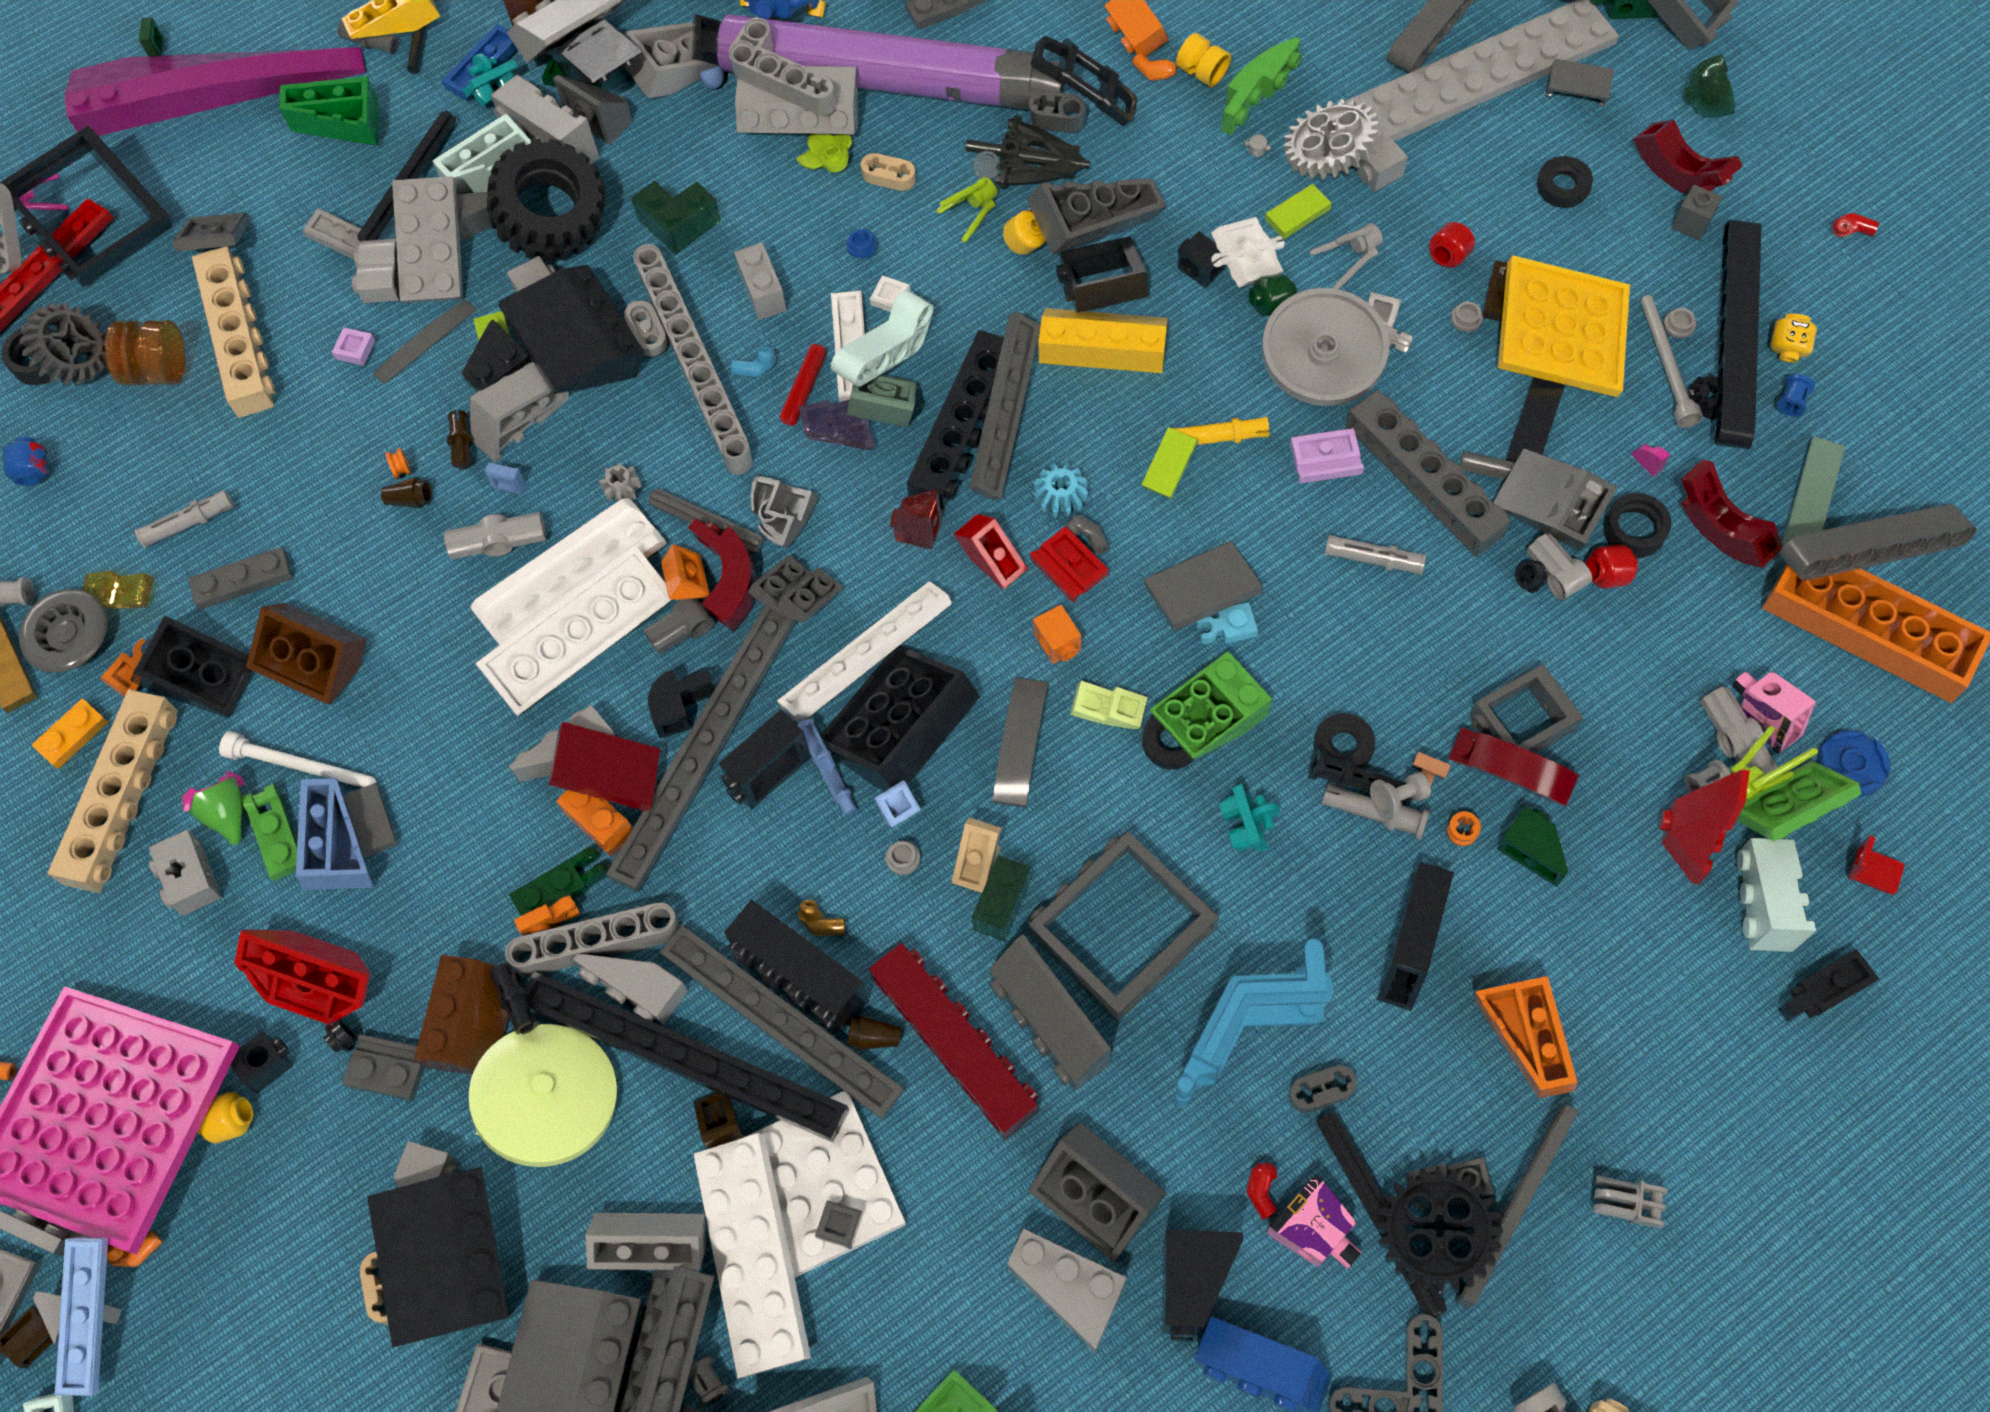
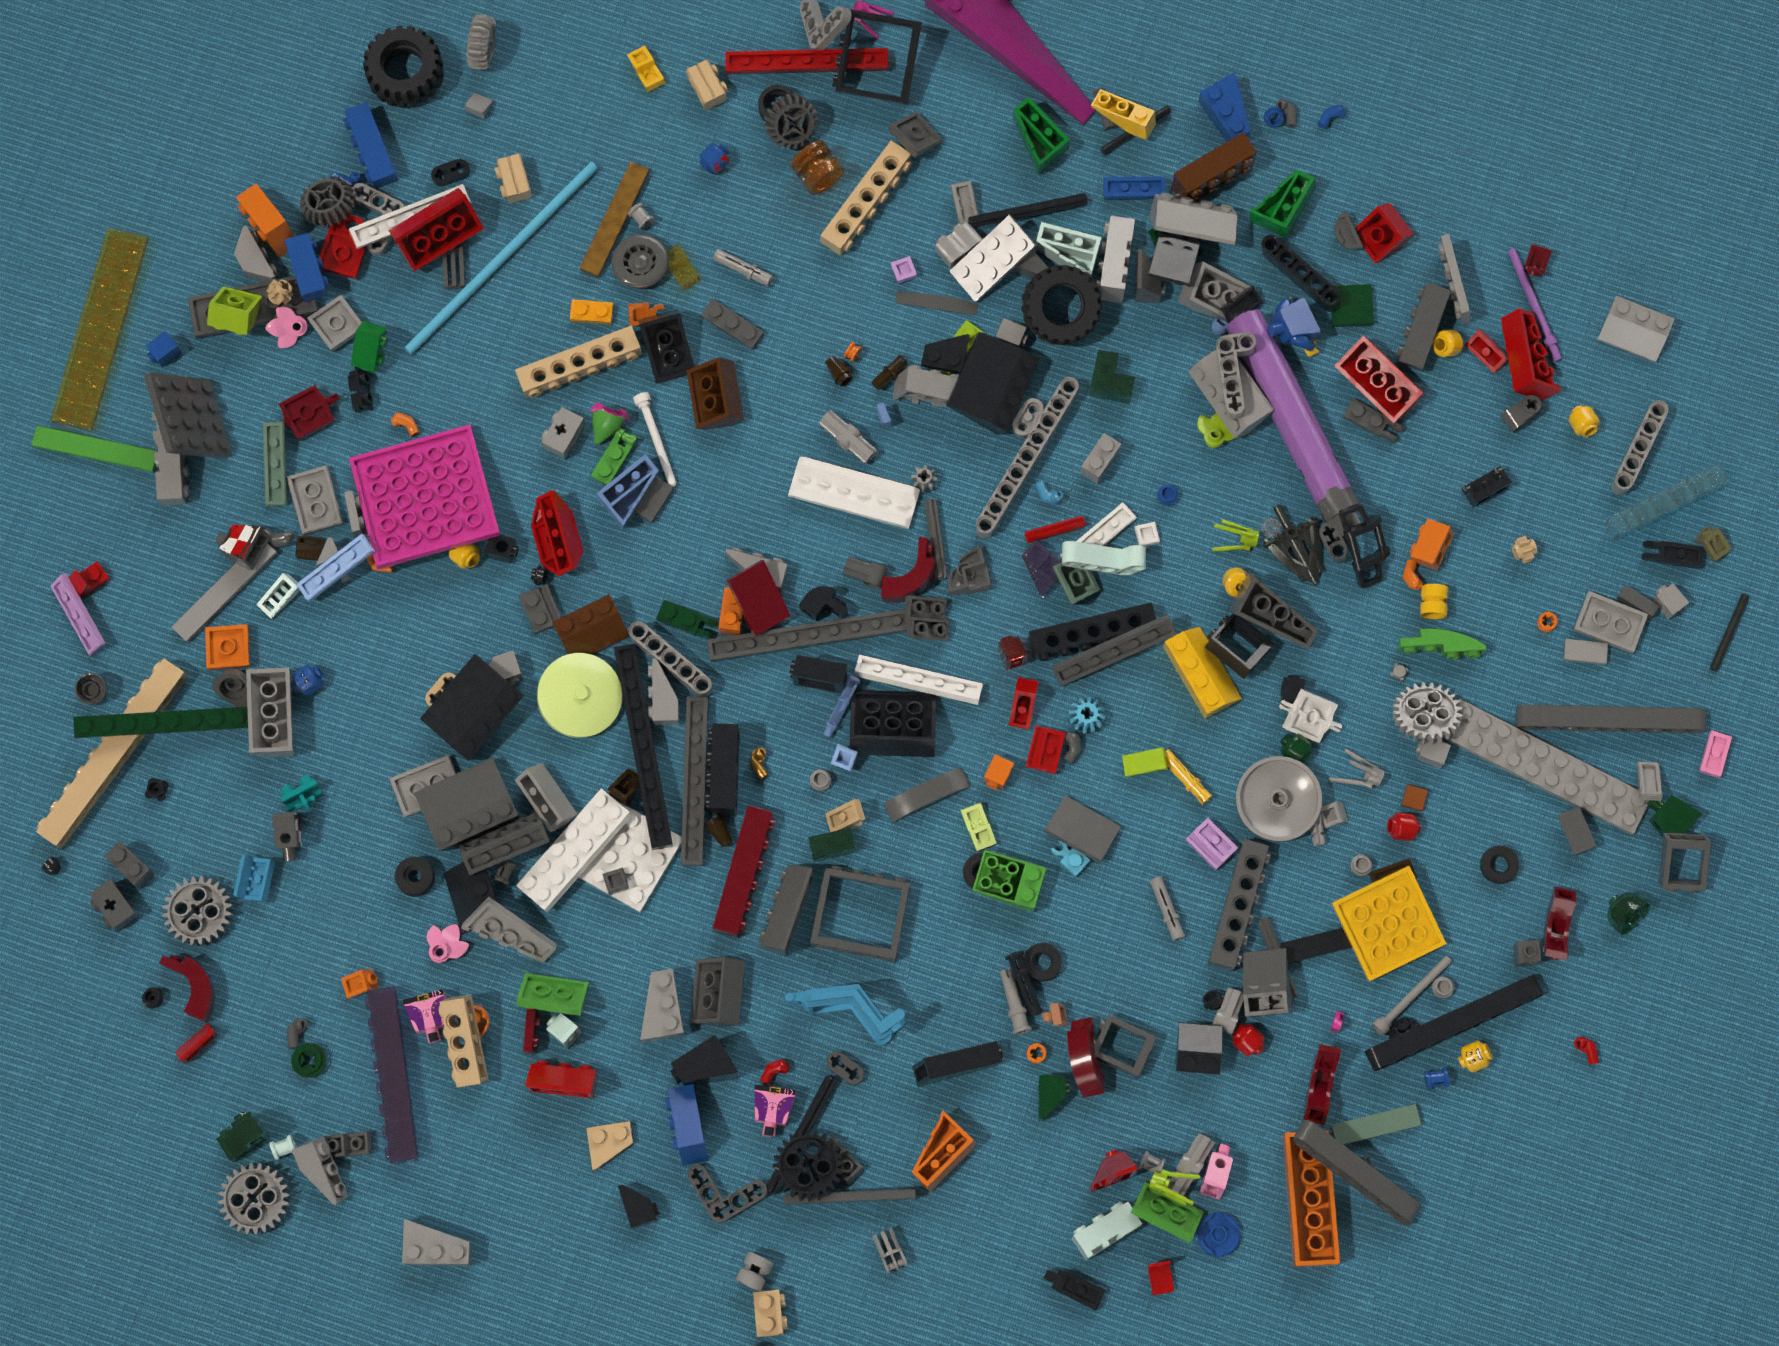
camera: 50 degrees right, 10 degrees up
(481, 85) = (1131, 208): teal hips -> none
(513, 998) = (613, 645): black pin -> none
(547, 917) = (661, 627): orange plate -> none
(575, 631) = (824, 523): white plate -> none
(684, 574) = (894, 553): orange slope -> none
(888, 171) = (1223, 476): tan beam -> none
(1242, 806) = (964, 942): teal hips -> none
(1298, 211) = (1368, 724): lime tile -> none
(1387, 797) = (1019, 1003): light grey piece -> none
(1421, 218) = (1414, 798): none -> dark orange tile
(1590, 626) = (1199, 1048): none -> slope
(1647, 506) = (1282, 1023): black tyre -> none

